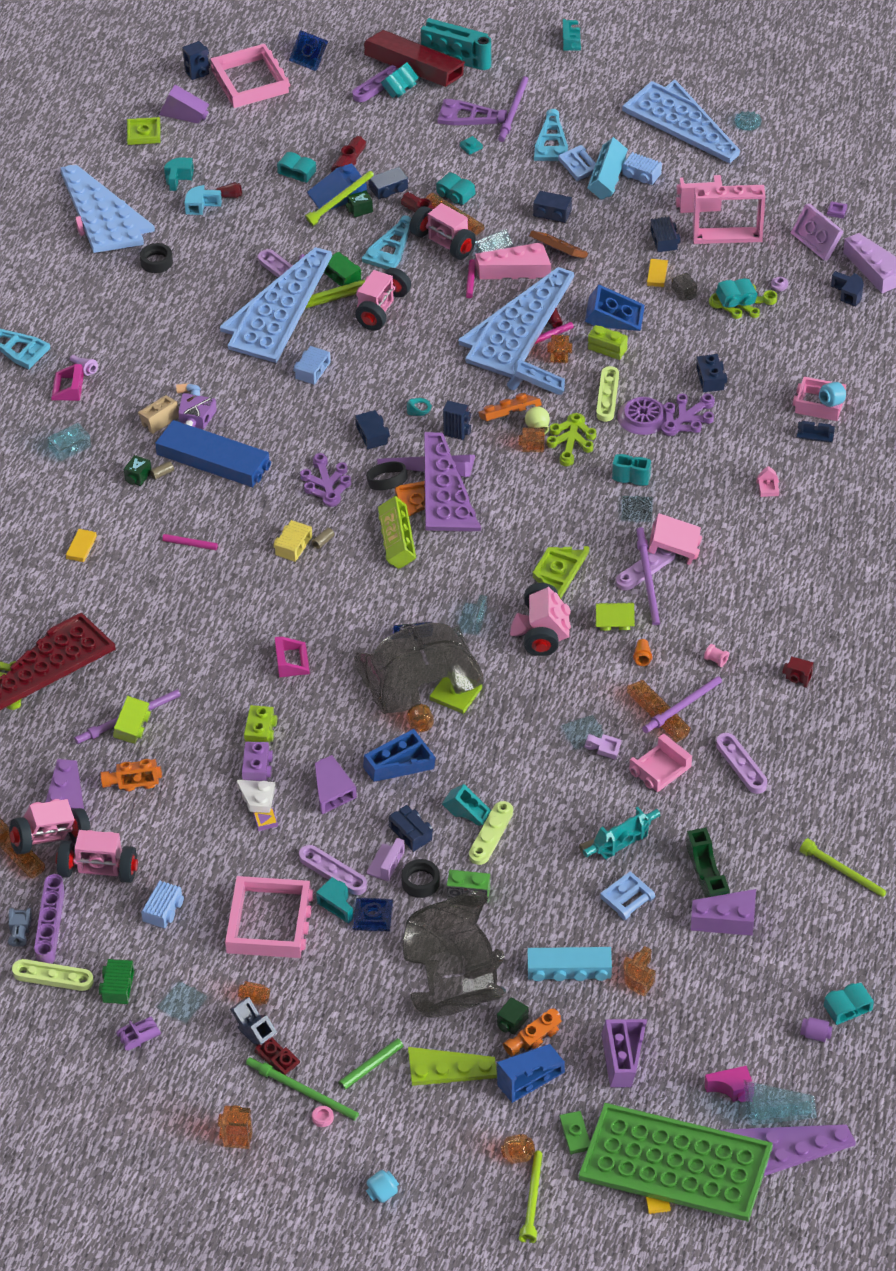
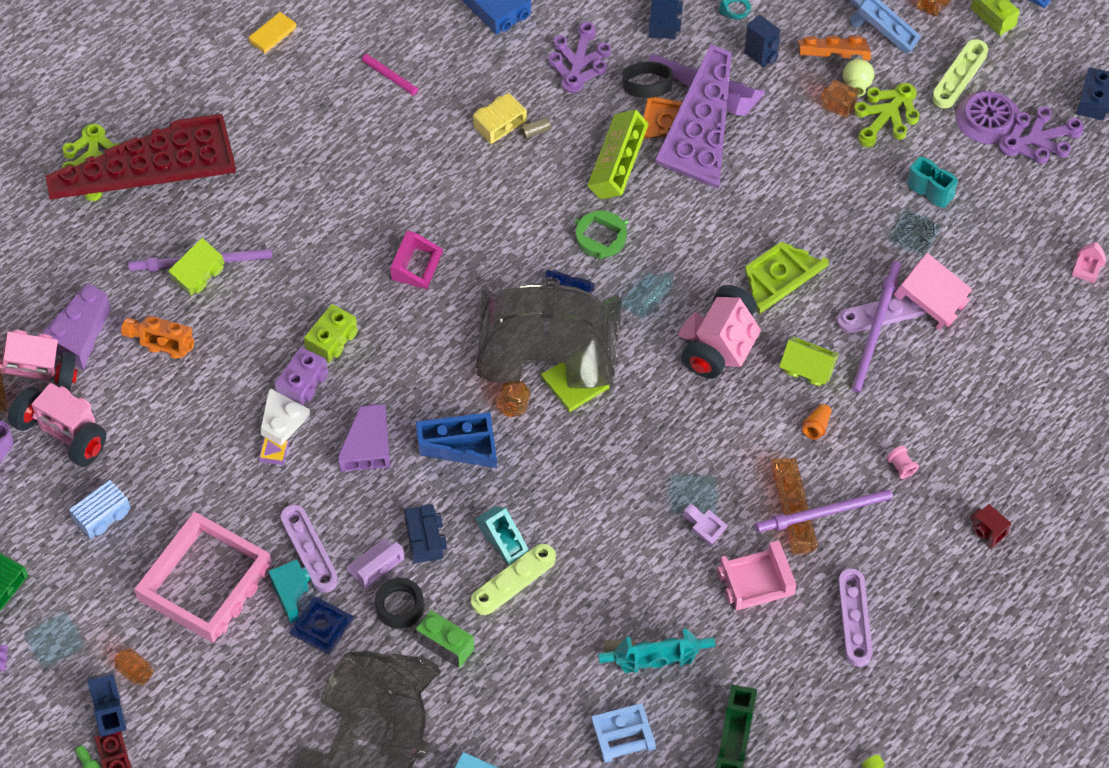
camera: 25 degrees right, 10 degrees up
(415, 579) = (608, 220): none -> bright green piece

